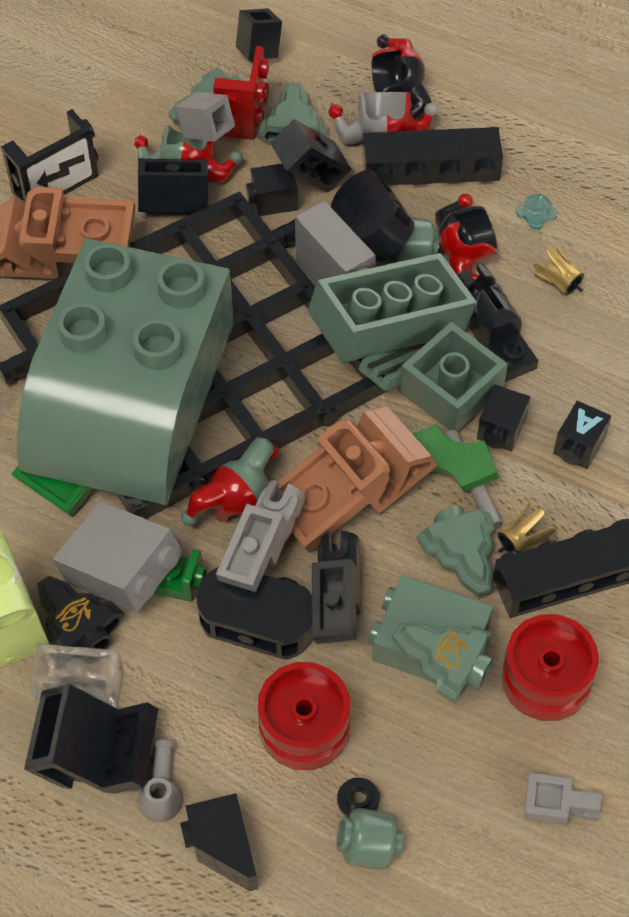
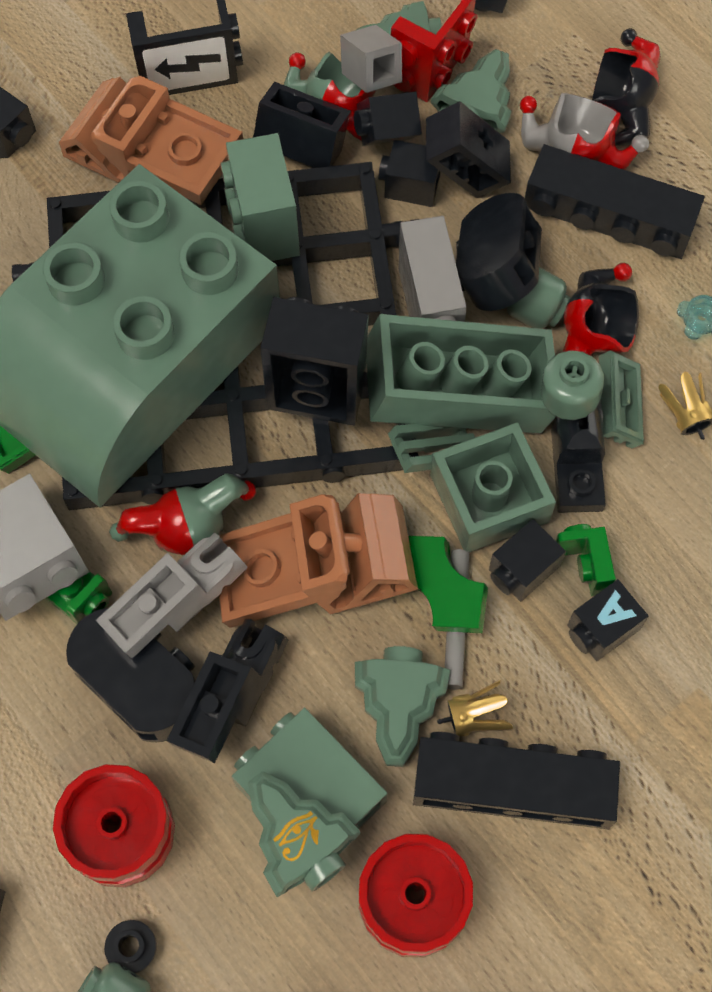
camera: 25 degrees right, 10 degrees up
(178, 228) = (261, 196): none -> sand green brick
(238, 154) = (388, 118): none -> black brick
(288, 329) = (314, 359): none -> black brick
(480, 278) = (572, 385): none -> sand green head
(513, 285) = (622, 399): none -> sand green tile
(550, 394) = (595, 559): none -> green bracket

